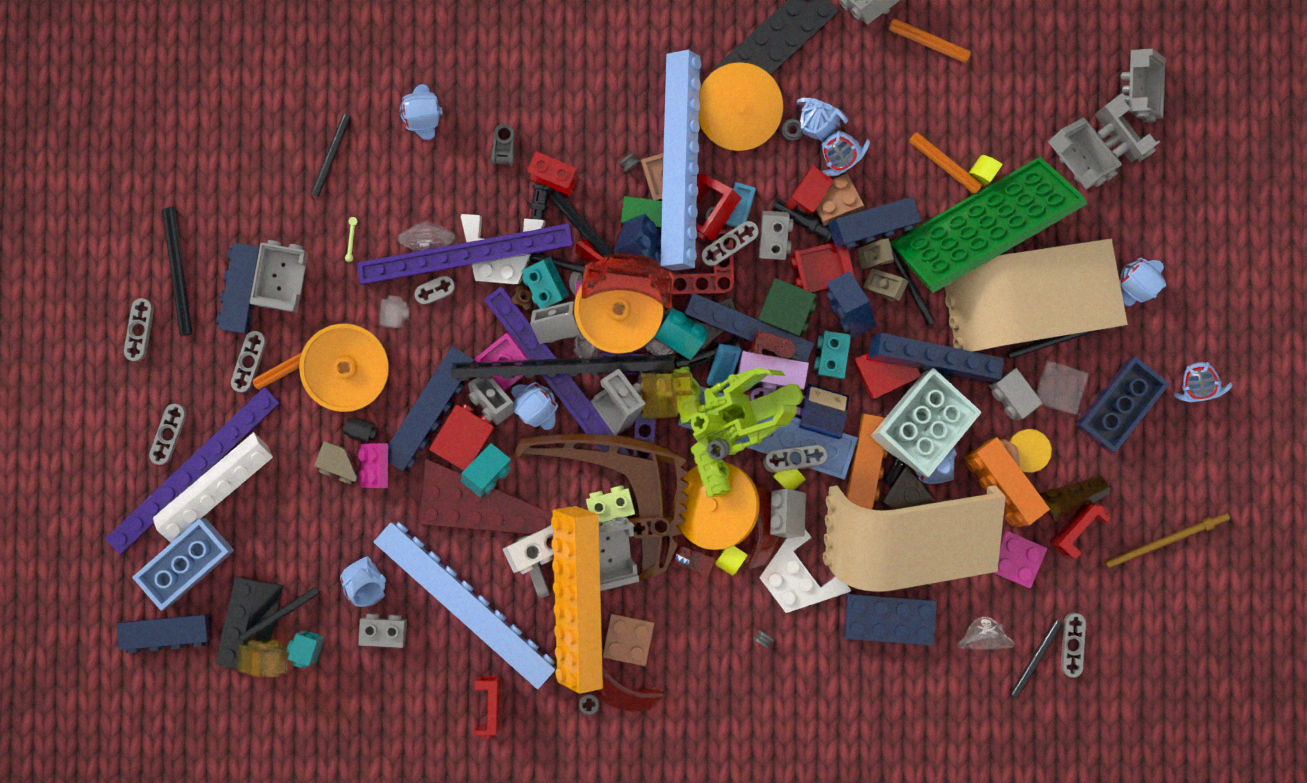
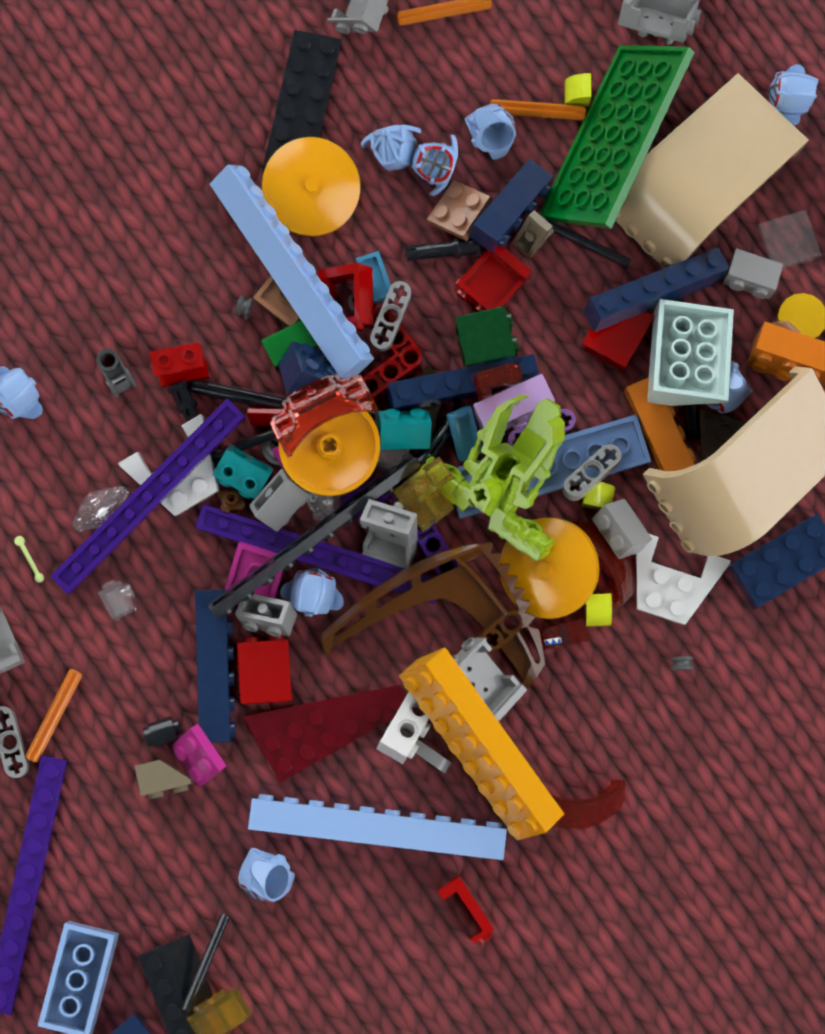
camera: 30 degrees left, 5 degrees down
(212, 487) = (56, 885): white brick -> none
(305, 648) = (252, 978): teal brick -> none
(344, 367) = (105, 682): light orange dish -> none
(382, 631) = (315, 910): light grey brick -> none
(437, 295) = (137, 548): light grey beam -> none
(486, 470) = (309, 686): teal brick -> none
(594, 707) = (569, 841): dark grey bush -> none
(611, 504) = (452, 634): yellowish green brick -> none
(628, 639) = (555, 753): nougat plate -> none
(713, 453) = (522, 508): dark grey bush -> none
(774, 235) = (427, 281): light grey brick -> none
(792, 123) = (372, 168): dark grey plate -> none
(810, 190) = (431, 217): red panel -> none
(824, 411) = (588, 411): clear blue slope -> none
(832, 355) = (558, 354): teal brick -> none
(850, 305) = (543, 295): dark blue brick -> none
(885, 285) = (562, 256): dark tan slope -> none
(900, 155) = (492, 130): none -> light blue piece
(1042, 344) = (746, 210): black bar -> none

